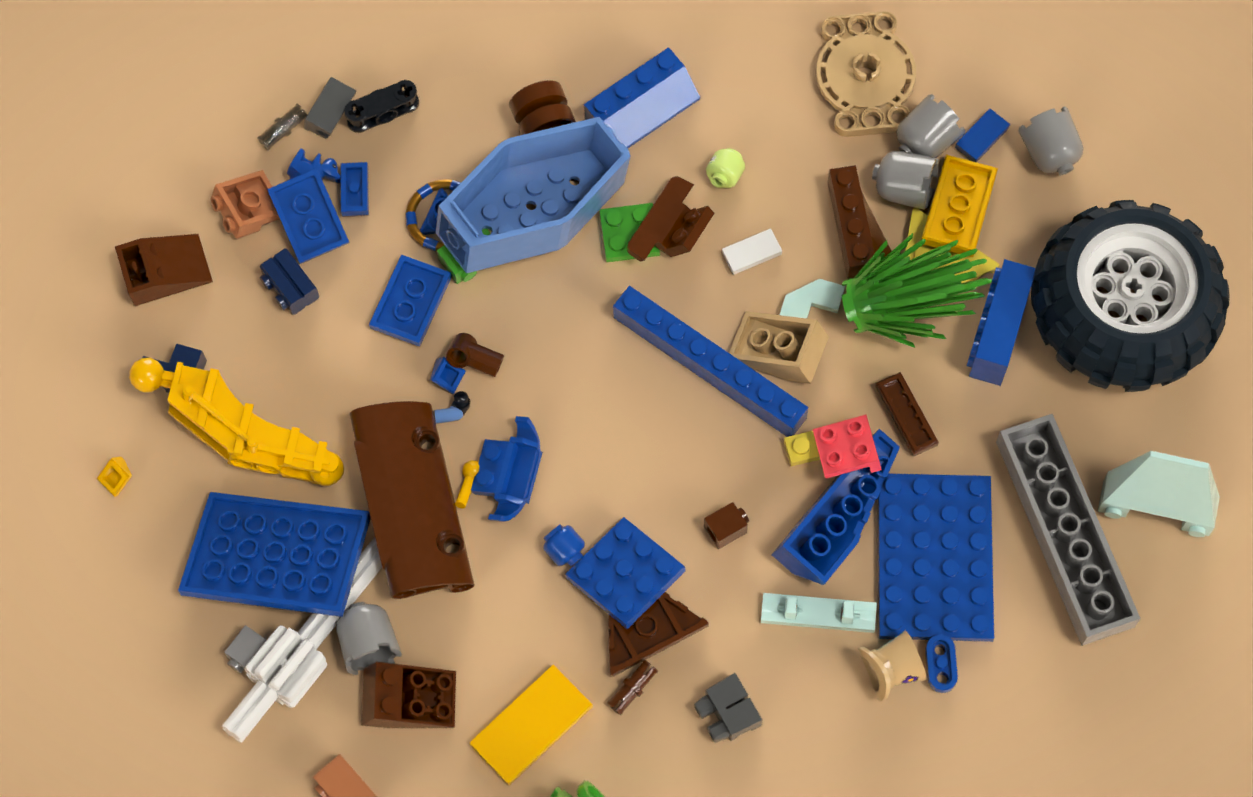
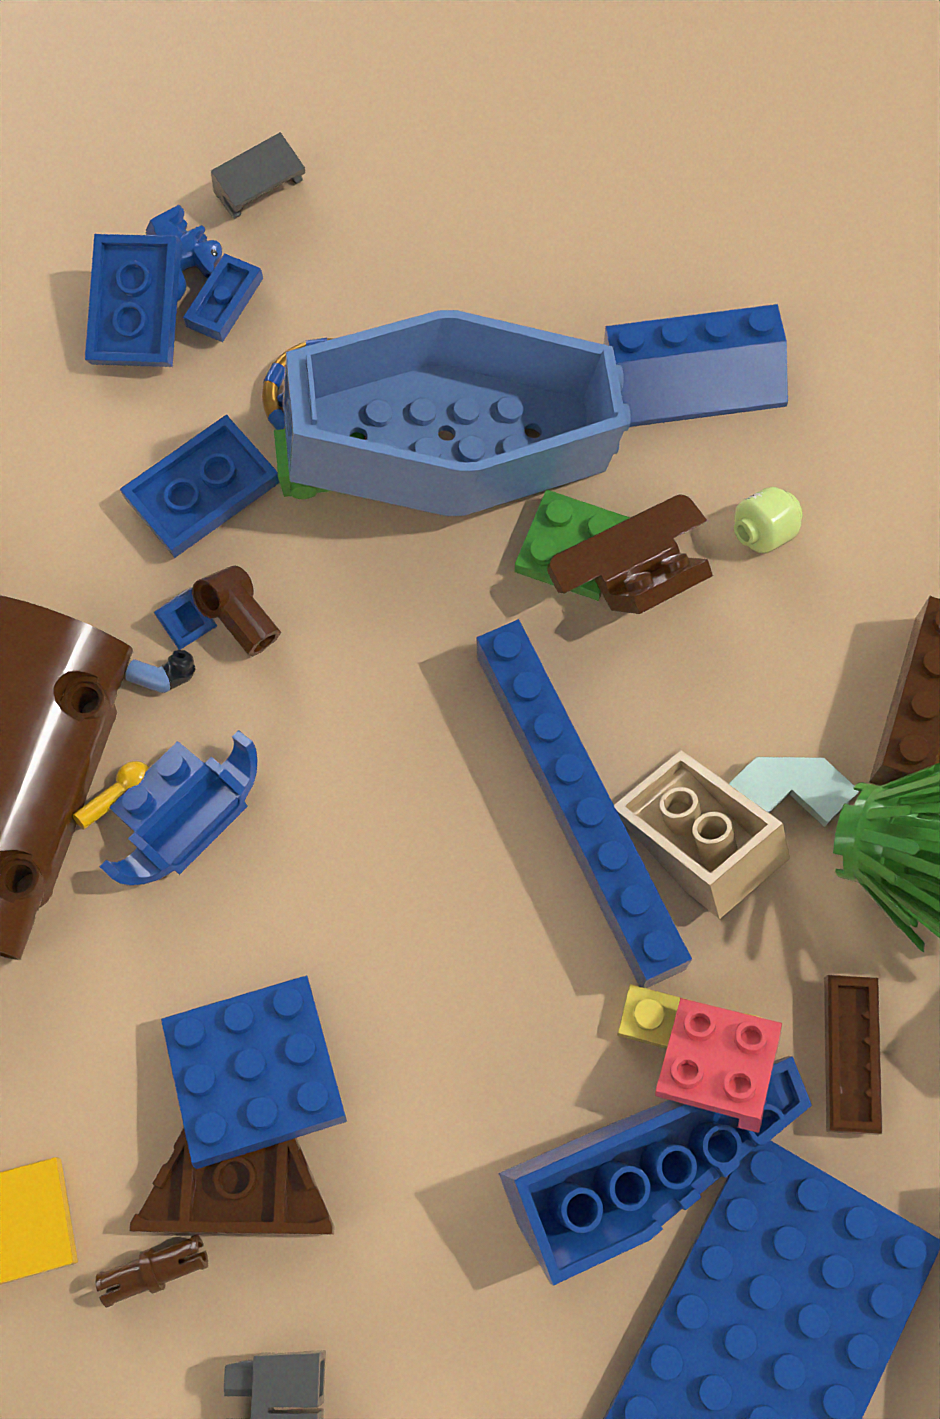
camera: 30 degrees right, 0 degrees up
(244, 203) = (61, 244): nougat plate -> none
(282, 126) = (180, 173): clear smoke pin -> none
(289, 282) = (53, 377): dark blue brick -> none
(381, 106) = (328, 205): black piece -> none
(540, 107) = (543, 295): reddish brown wheel -> none
(564, 545) = (187, 971): blue head -> none
(726, 525) = (457, 1079): reddish brown brick -> none
(752, 251) = (741, 663): white tile -> none
(818, 612) = (526, 1318): light aqua hinge -> none

